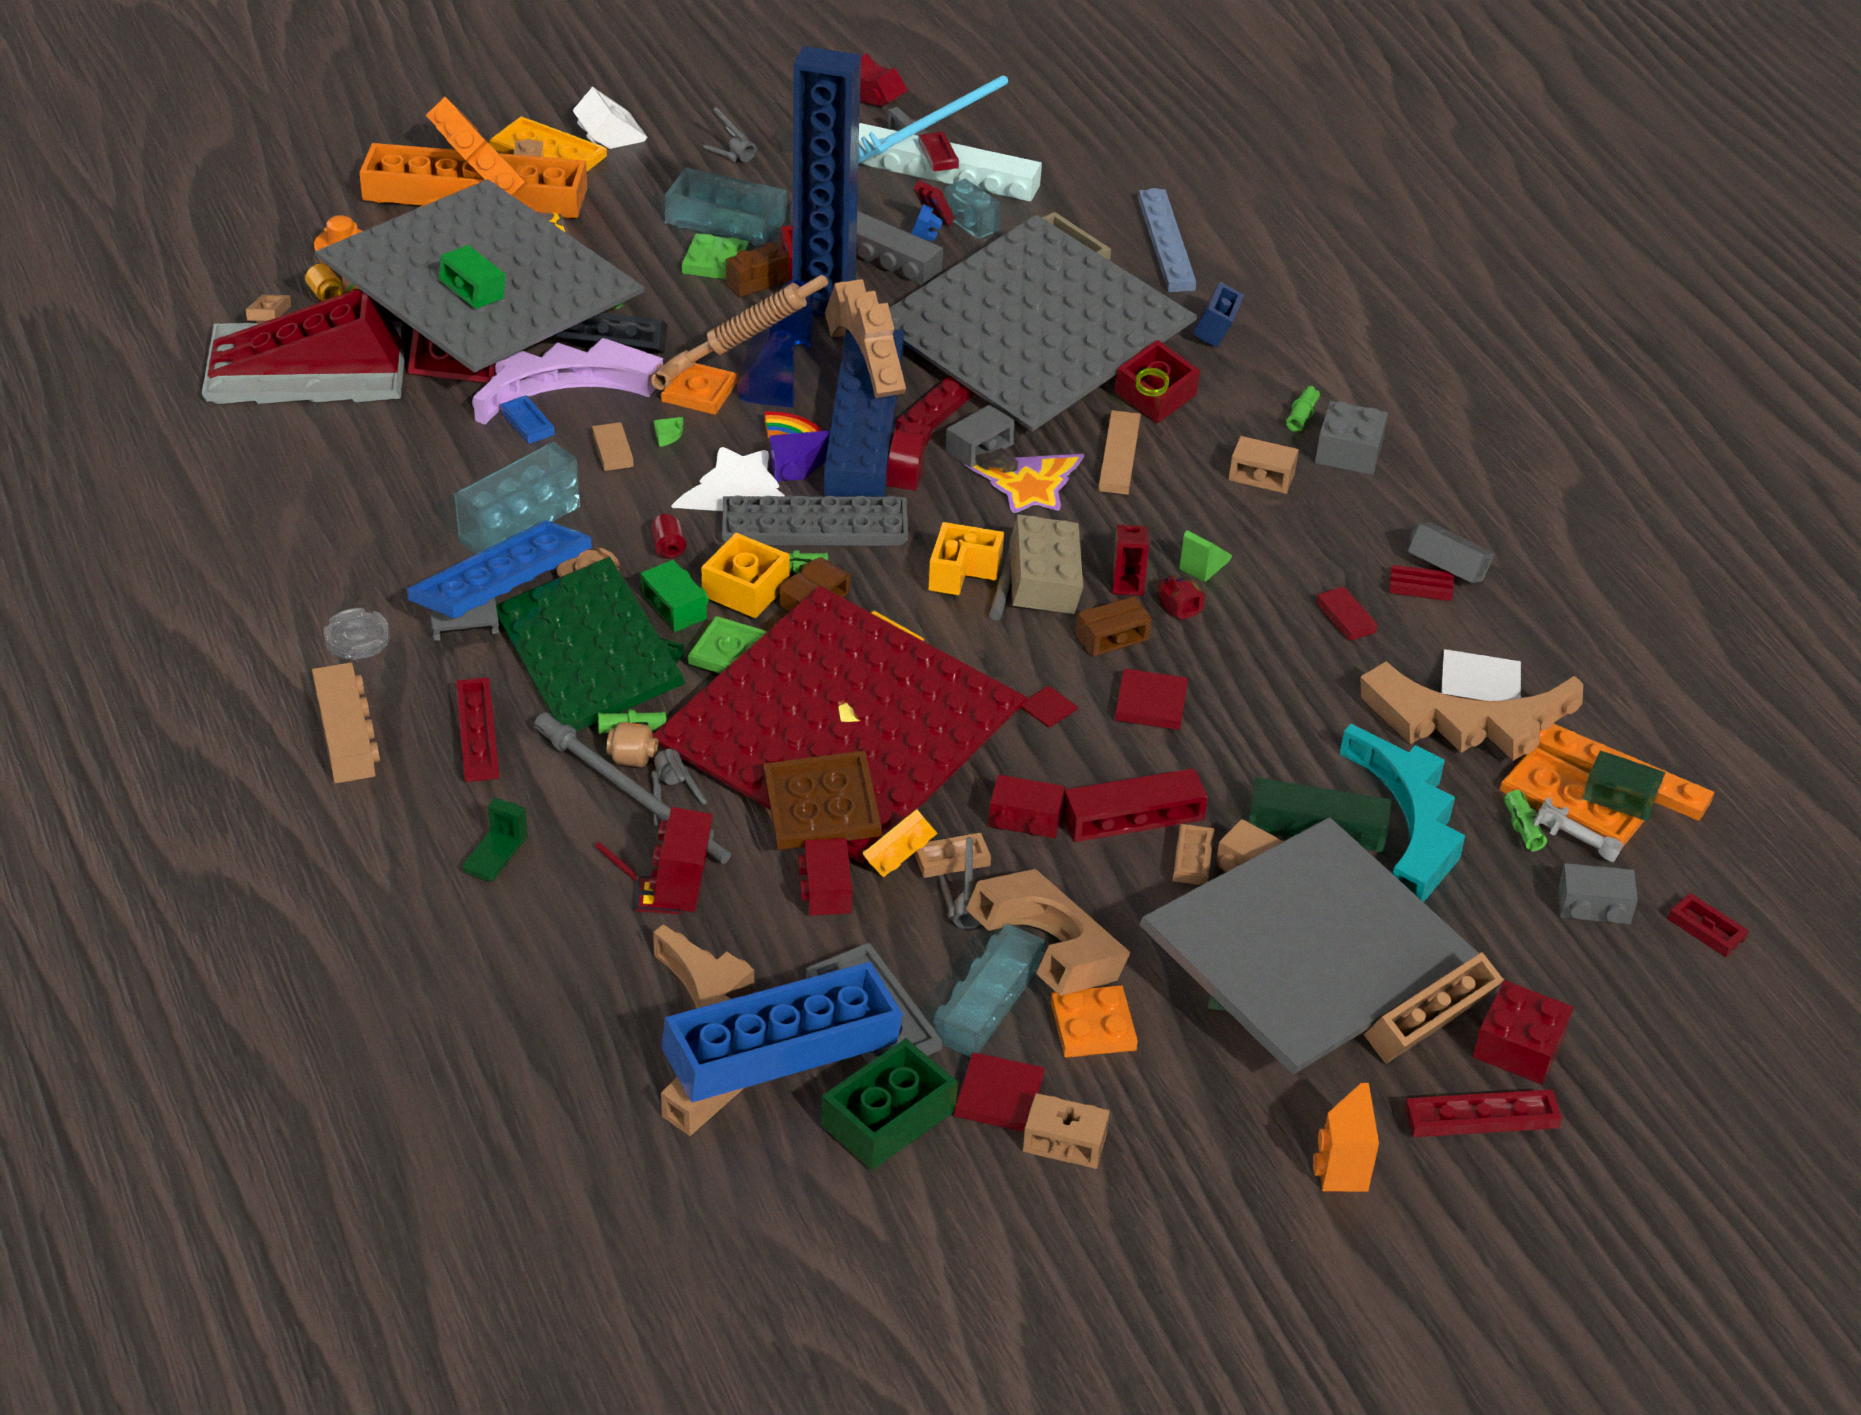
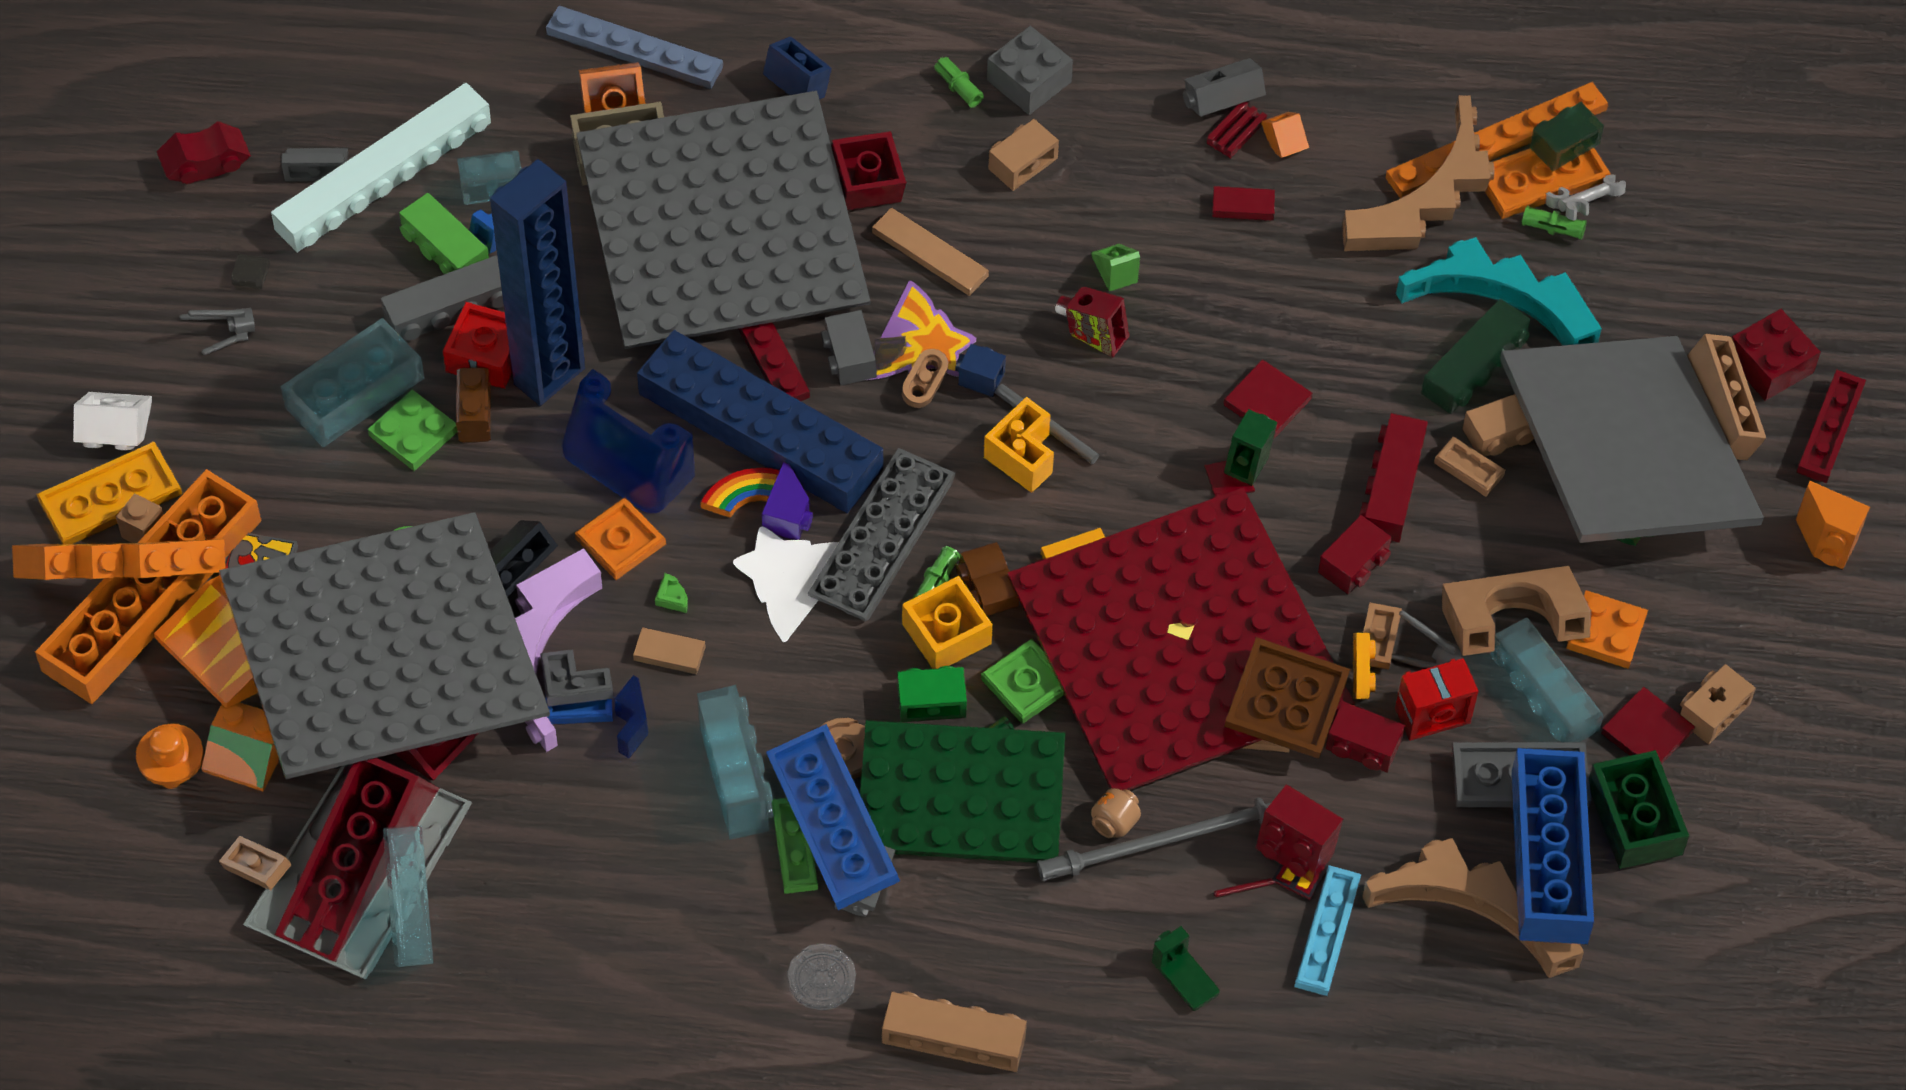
camera: 60 degrees left, 15 degrees up
(270, 370) = (408, 895): none -> clear light blue brick
(323, 282) = (237, 796): light orange brick -> none
(472, 276) = (421, 651): green brick -> none
(477, 729) = (1021, 927): dark red plate -> none
(516, 446) = (631, 708): none -> clear blue slope
(543, 402) = (567, 686): none -> dark grey tile
(603, 932) = (1327, 930): none -> medium azure tile
(609, 721) = (1082, 801): bright green pin -> none
(668, 536) = (843, 662): dark red brick -> none
(672, 771) = (1161, 796): dark grey plant -> none
(740, 328) = (621, 464): medium nougat piece -> none
(872, 329) = (669, 352): medium nougat arch -> none
(882, 145) = (361, 218): medium azure piece -> none
(898, 202) = (440, 235): none -> bright green brick
(901, 906) = (1436, 699): none -> red container
(907, 456) = (850, 410): dark red brick -> none
(936, 201) = (473, 204): dark red tile -> none
(938, 151) = (394, 158): dark red tile -> none
(986, 486) = (924, 380): none -> medium nougat plate
(1023, 504) = (981, 369): none -> dark blue brick
(1046, 564) = (1070, 386): dark tan brick -> none
(1076, 688) = (1250, 447): none -> dark green brick
(1113, 233) = (611, 87): none -> orange slope
(1113, 626) = (1169, 379): reddish brown brick -> none
(1152, 371) = (892, 165): clear neon green piece -> none
(1181, 597) = (1154, 310): dark red rock -> none
(1443, 609) = (1285, 134): none -> orange brick
(1480, 676) = (1379, 155): white sticker -> none
(1597, 893) = (1659, 223): dark grey brick -> none
(1704, 927) = (1721, 176): dark red tile -> none

